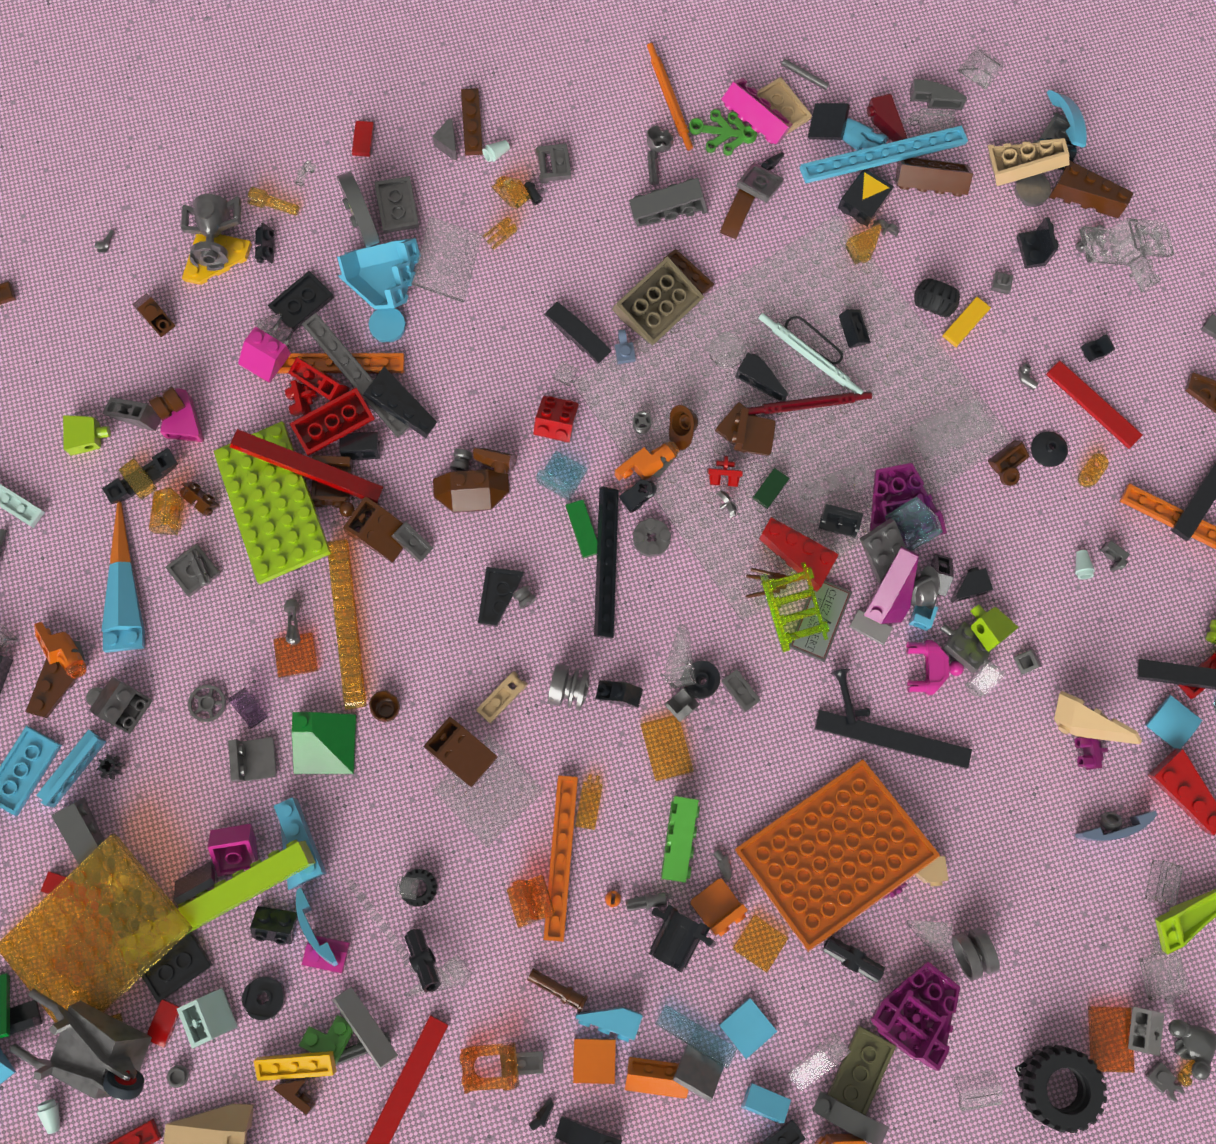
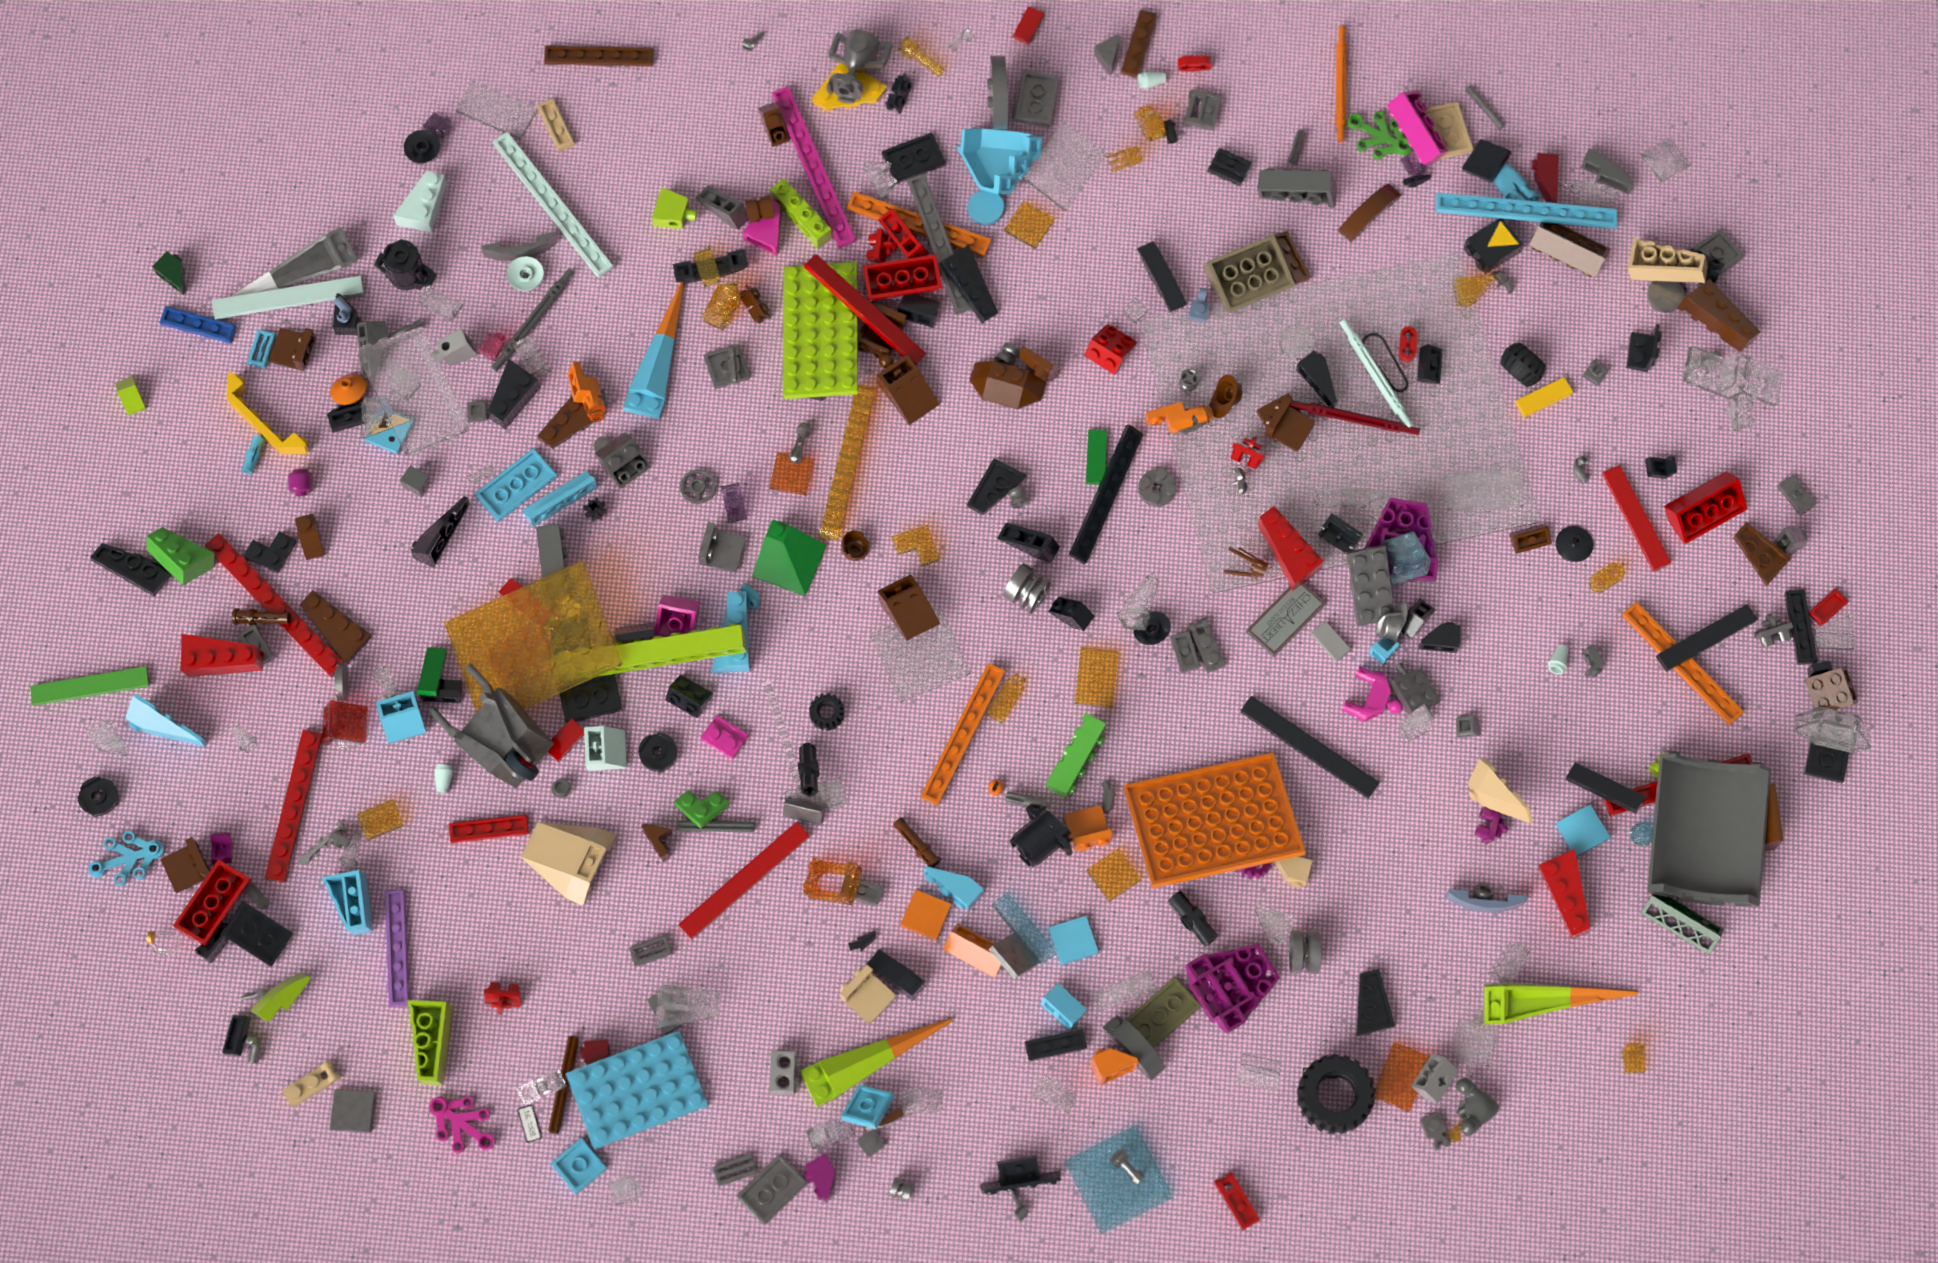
camera: 25 degrees right, 5 degrees down
(207, 343) = (813, 167): none -> dark pink plate
(211, 392) = (801, 213): none -> lime brick
(263, 354) = (861, 195): dark pink slope -> none
(295, 1066) = (666, 814): yellow plate -> none
(302, 796) = (752, 596): none -> medium azure arm
(303, 907) = (724, 728): medium azure slope -> none
(365, 1028) = (737, 807): light grey tile -> none
(407, 887) = (817, 705): clear plate -> none
(412, 542) = (934, 411): flat silver plate -> none
(432, 1001) = (803, 811): none -> flat silver slope
(434, 327) = (1029, 225): none -> clear yellow tile
(444, 676) = (919, 540): none -> clear yellow plate
(501, 697) = (963, 578): tan plate -> none
(530, 122) = (1194, 63): none -> red beam
(530, 901) = (921, 758): clear orange bracket -> none
(551, 637) = (1029, 541): none -> black slope
(561, 475) = (1095, 401): clear light blue bracket -> none
(599, 207) = (1229, 167): none -> black plate
(636, 497) = (1159, 444): black piece -> none
(659, 140) = (1312, 122): flat silver hair -> none
(682, 704) = (1125, 644): flat silver panel -> none
(757, 676) = (1206, 646): none -> flat silver plate
(760, 182) = (1394, 196): flat silver tile -> none
(764, 152) = (1413, 169): none -> clear purple arm
(770, 488) = (1287, 482): dark green tile -> none
(776, 602) = (1246, 601): clear neon green fence -> none
(831, 315) = (1412, 344): none -> red beam
(848, 705) = (1279, 709): black piece -> none
(894, 592) = (1360, 616): wedge -> none
(991, 626) = (1444, 681): lime torso -> none
(1009, 476) = (1522, 554): reddish brown tile -> none
(1056, 977) = (1373, 1005): none -> black wing
(1077, 129) = (1733, 238): medium azure slope -> none
(1151, 371) = (1706, 507): none -> red slope

